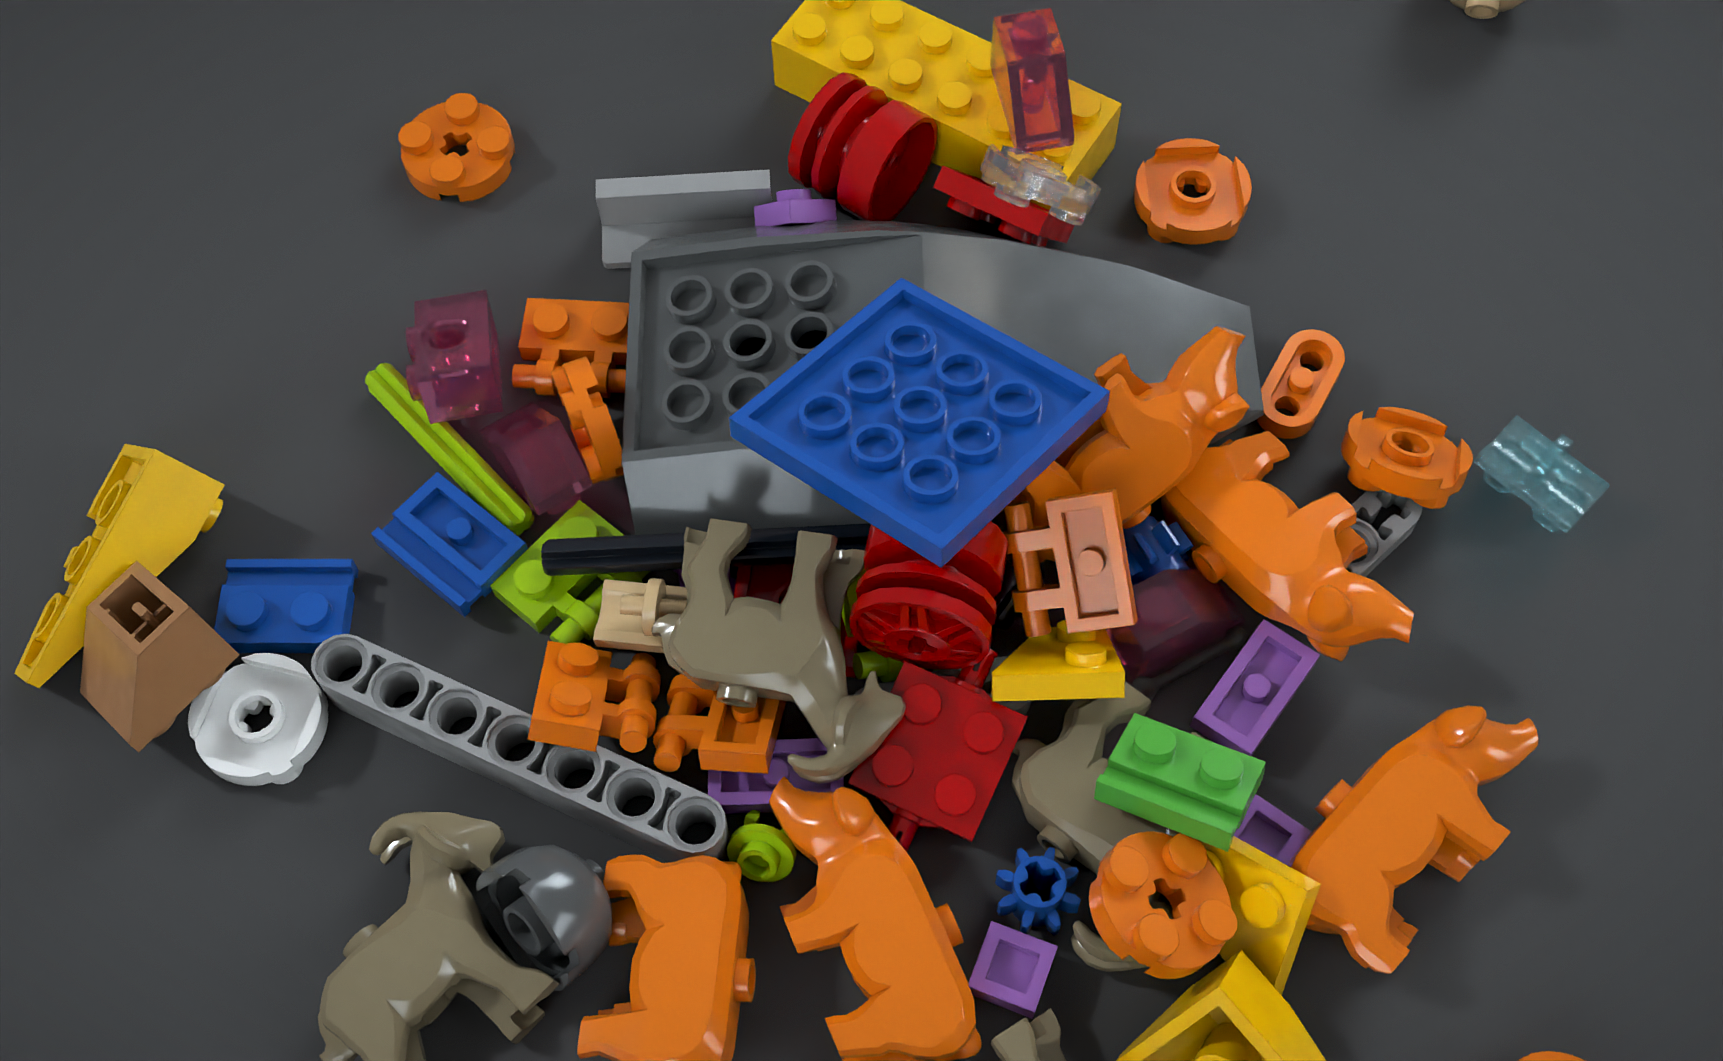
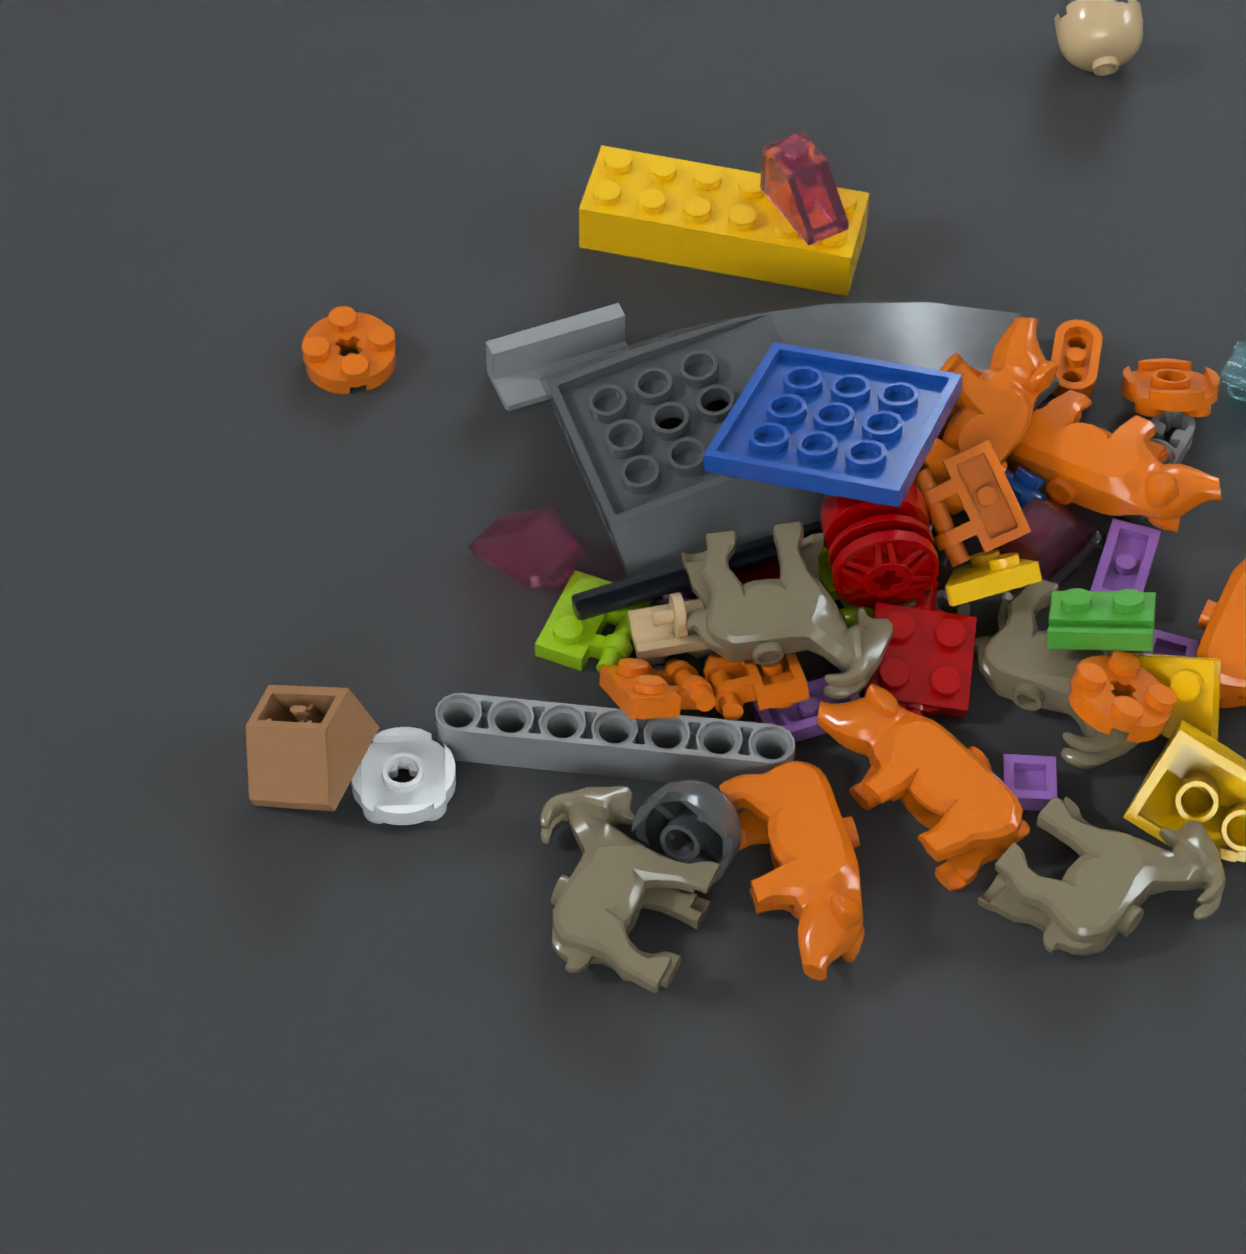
camera: 20 degrees left, 10 degrees down
(143, 514) = (230, 667): yellow wedge -> none
(285, 603) = (391, 692): blue plate -> none
(449, 543) = (489, 624): blue plate -> none
(450, 450) = (453, 563): lime axle -> none
(455, 357) = (436, 492): clear pink brick -> none
(569, 330) = (519, 467): orange plate -> none
(589, 420) = (576, 505): orange plate -> none
(761, 850) = (825, 753): lime plate -> none
(794, 207) = (647, 326): medium lavender plate -> none
(862, 148) = (674, 270): red wheel -> none
(977, 200) = (792, 285): red plate -> none
(1027, 176) = (838, 259): clear plate -> none
(1045, 874) = (1026, 728): blue gear -> none
(1186, 219) = (936, 267): orange plate -> none

